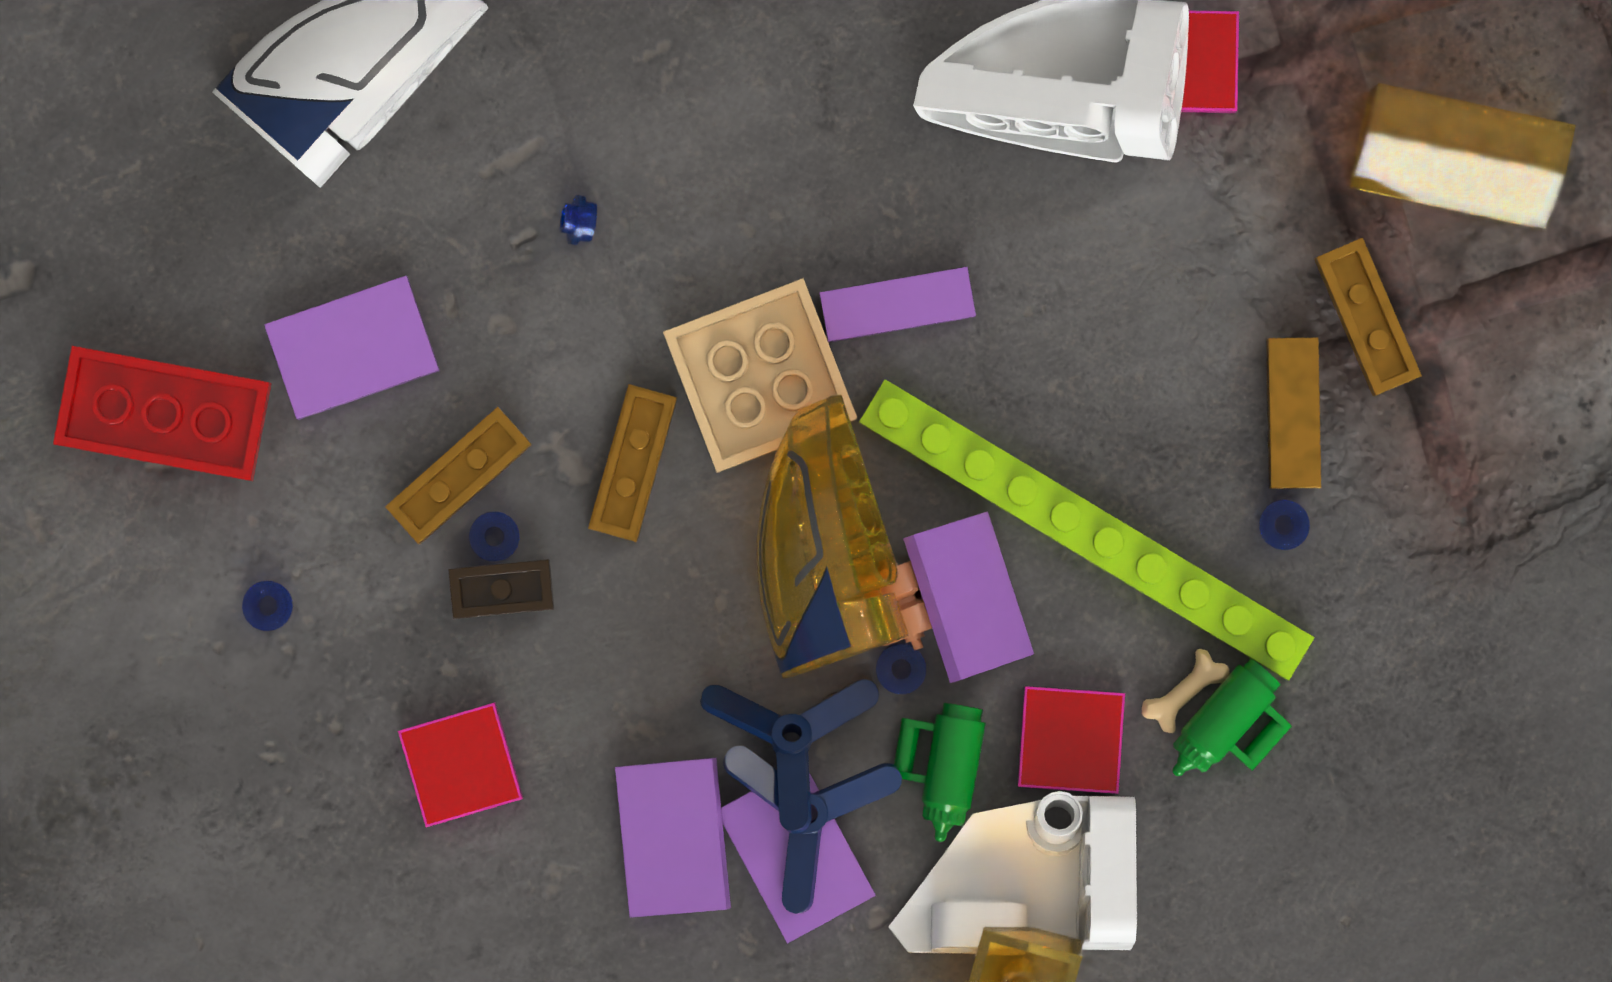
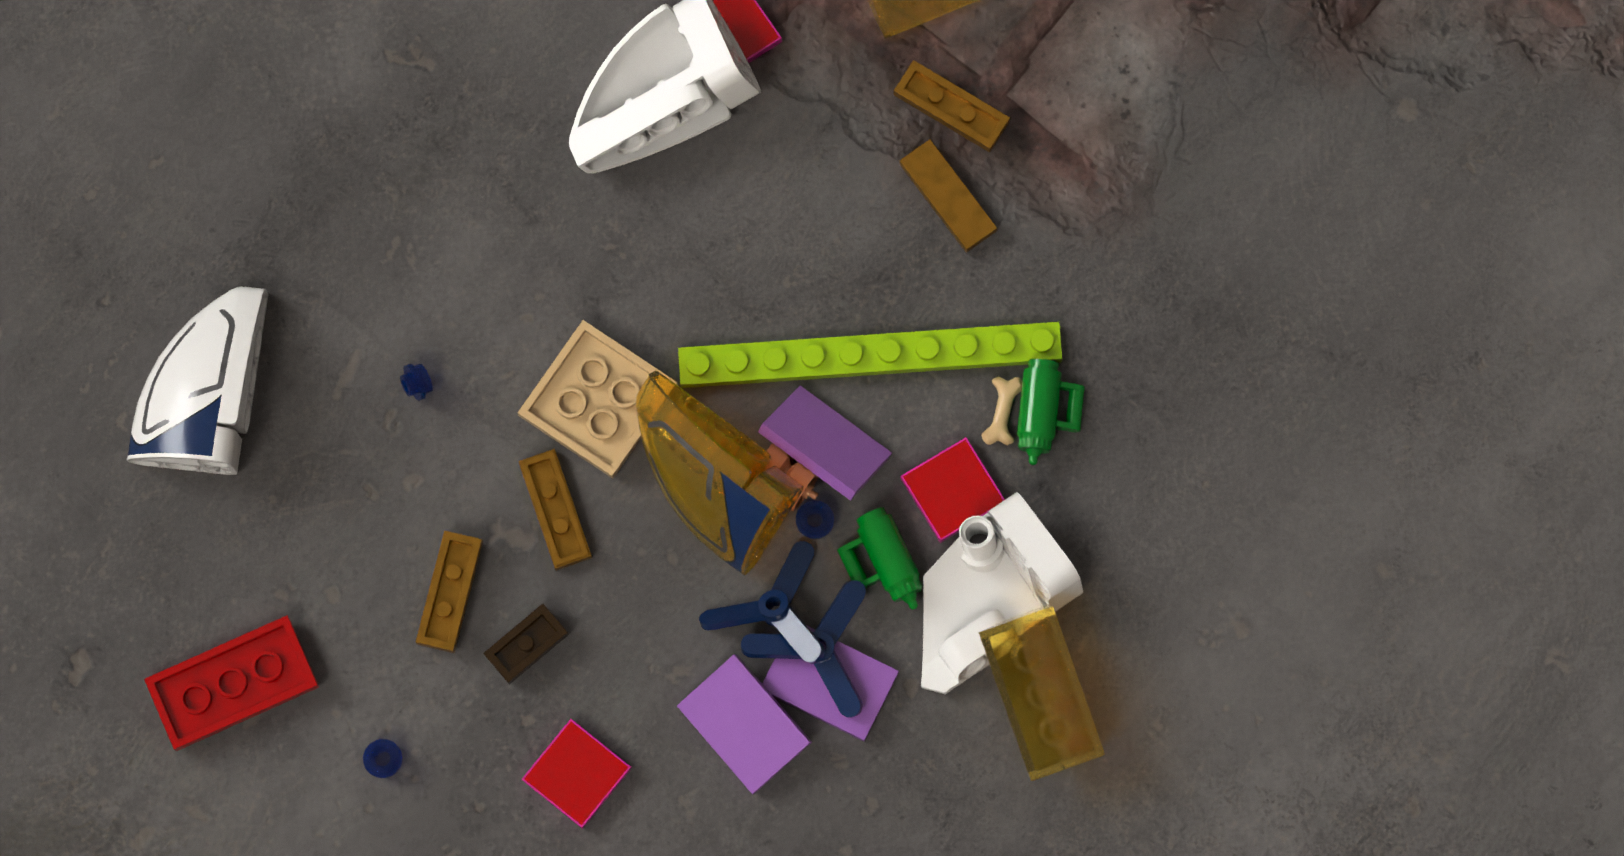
camera: 30 degrees left, 10 degrees down
(352, 347) = (325, 559): medium lavender tile -> none
(478, 536) = (492, 604): clear blue plate -> none
(897, 304) = (654, 297): medium lavender tile -> none
(1299, 520) = (991, 255): clear blue plate -> none

